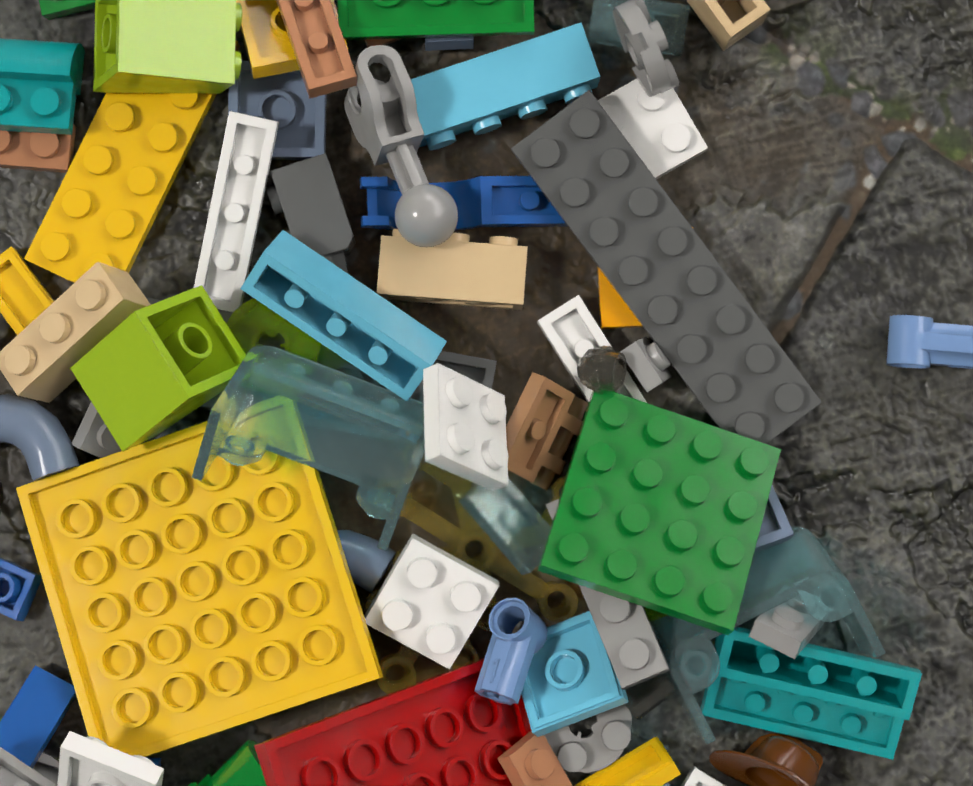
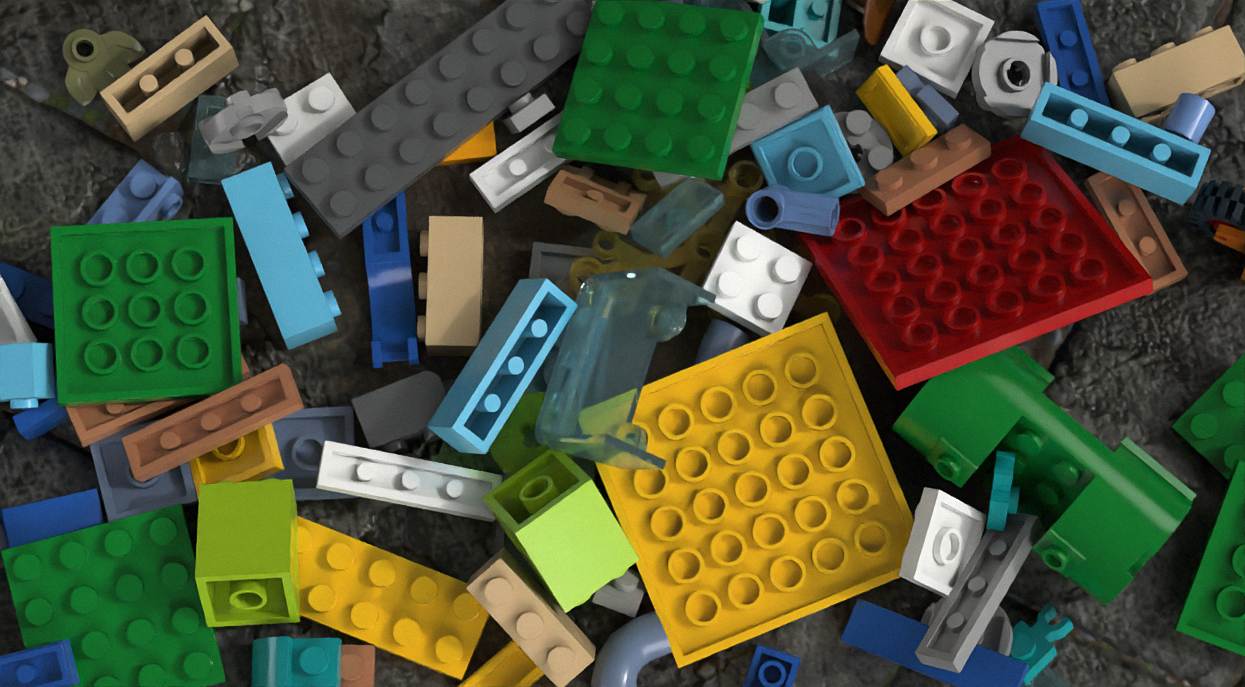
camera: 90 degrees left, 10 degrees down
(392, 133) = (328, 340): light grey piece -> none
(465, 427) = (599, 247): white plate -> none
(602, 369) = (537, 146): clear smoke plate -> none

